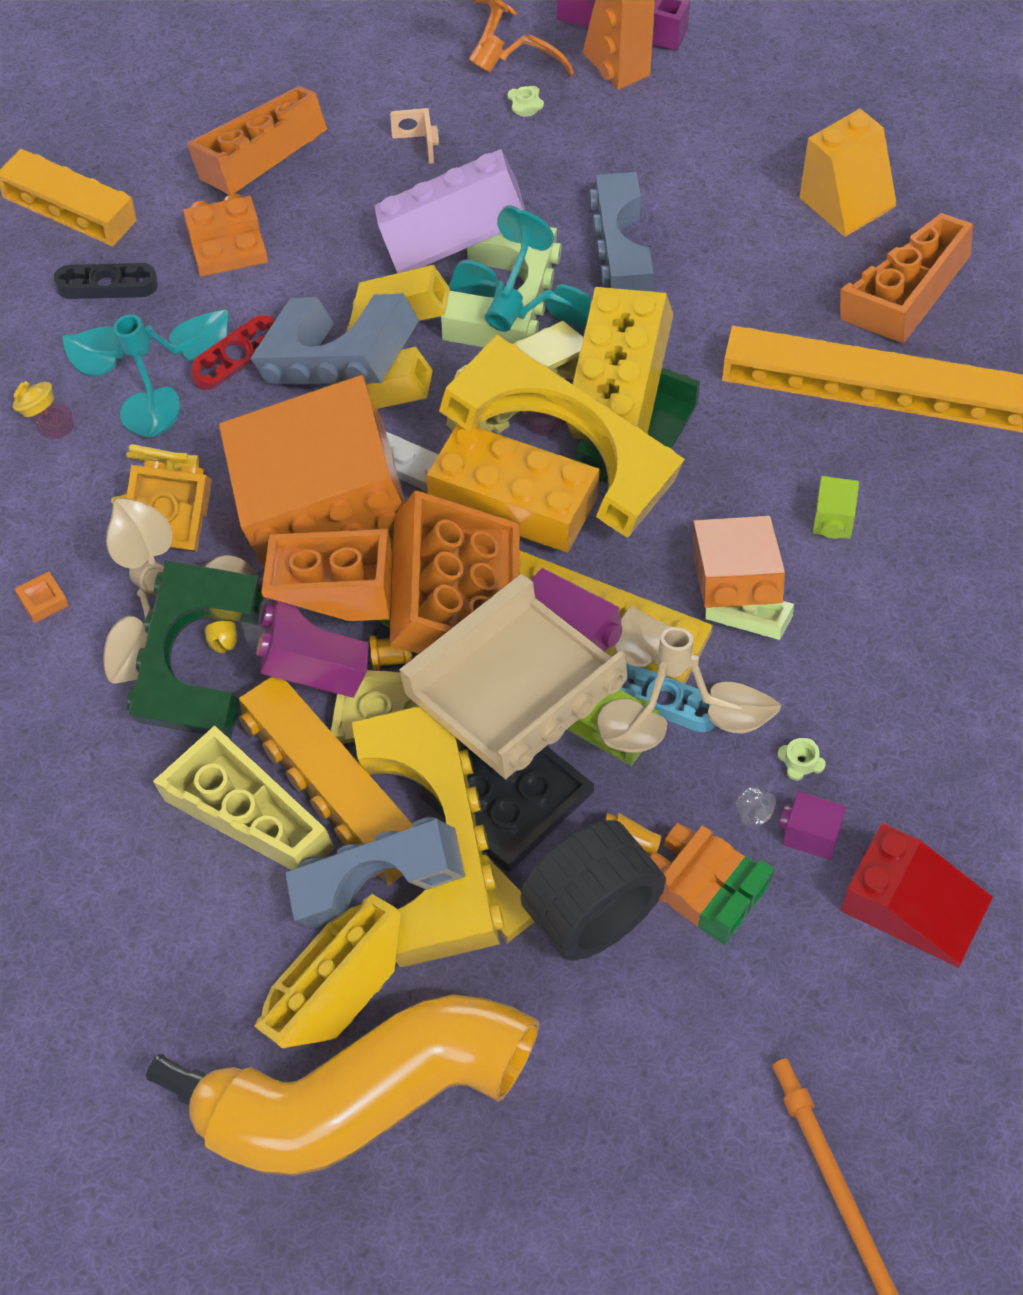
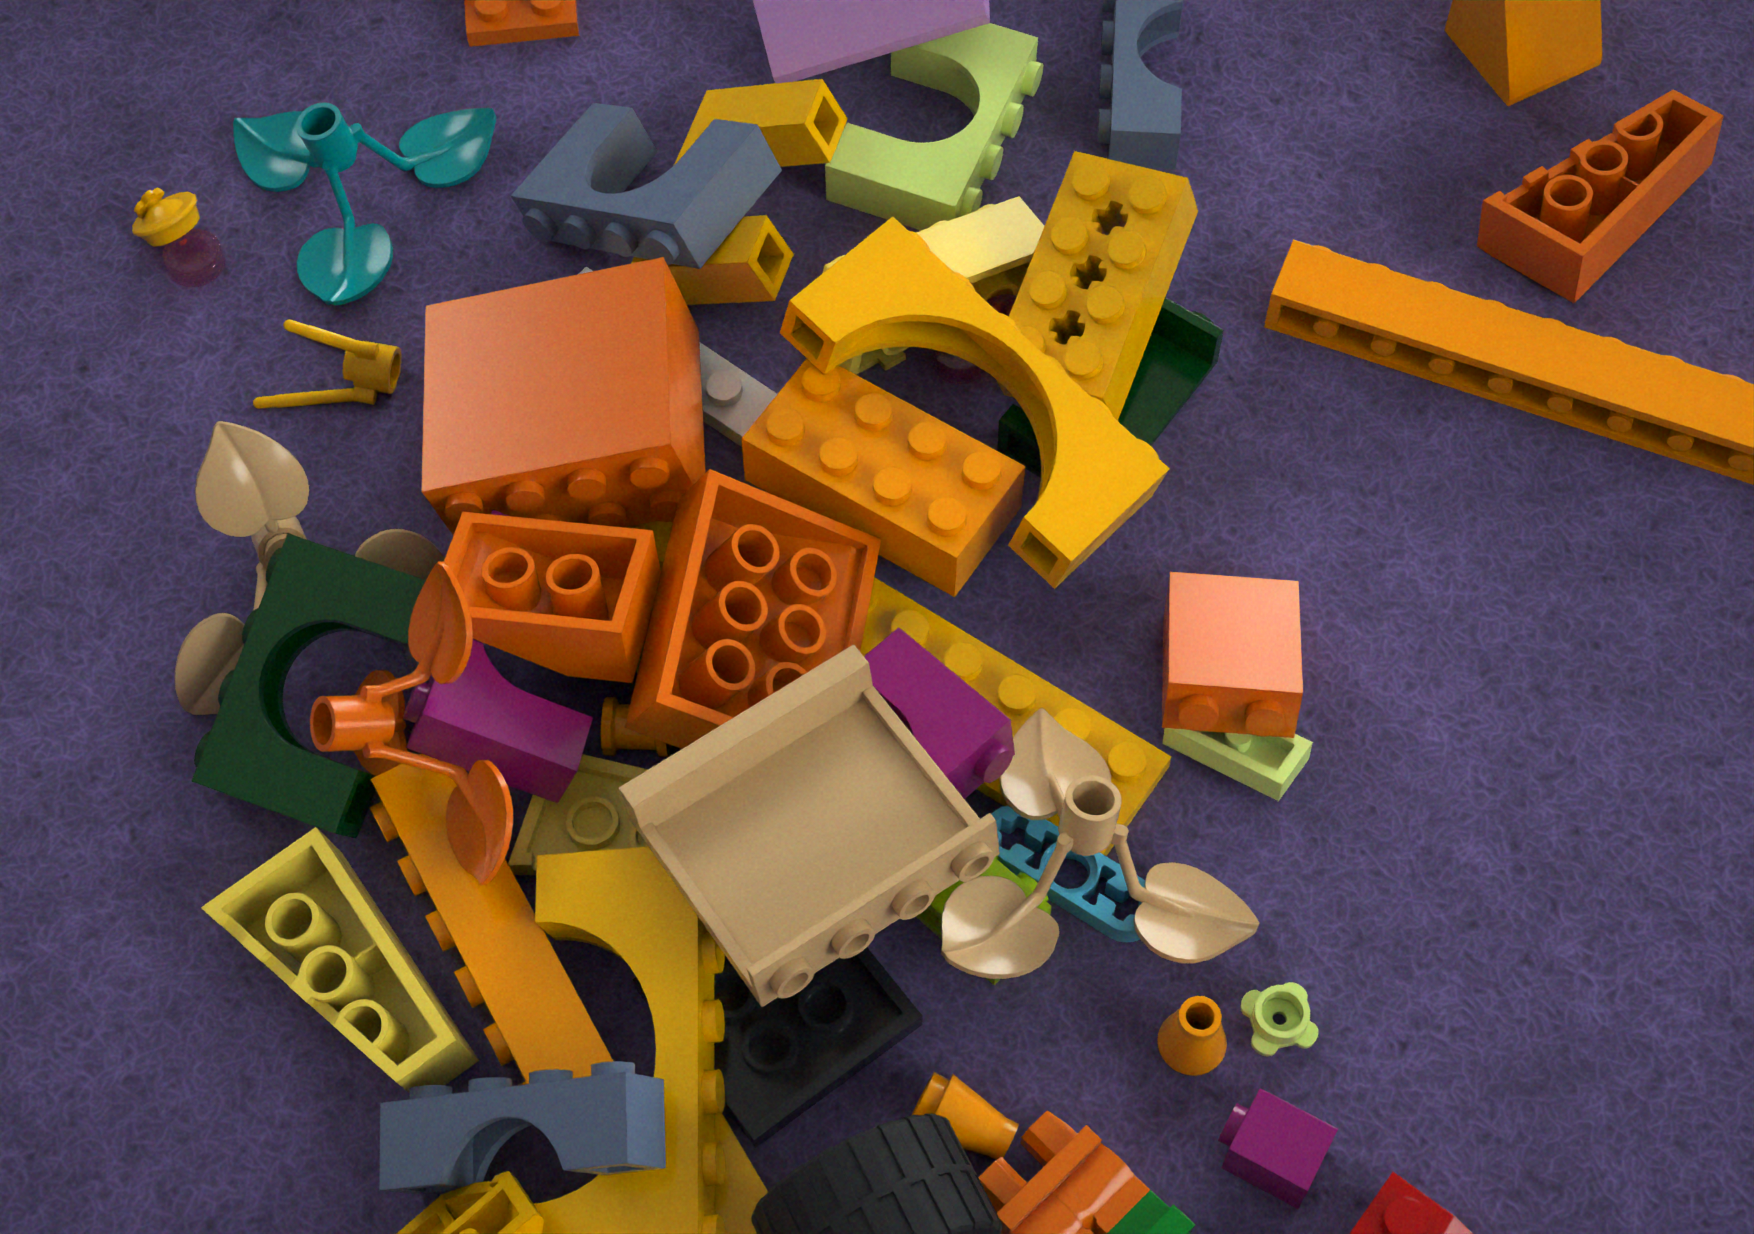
camera: 10 degrees right, 5 degrees up
(41, 597) = (109, 551): orange tile -> none
(94, 272) = (304, 21): black beam -> none
(175, 494) = (335, 423): light orange plate -> none
(221, 636) = (372, 654): yellow hinge -> none
(229, 366) = (450, 186): red beam -> none
(233, 660) = (373, 726): none -> orange plant
(477, 279) = (931, 158): teal plant -> none
(754, 769) = (1192, 1049): none -> light orange cone
(755, 806) = (1186, 1096): clear plate -> none
(836, 507) = (1412, 578): lime brick -> none

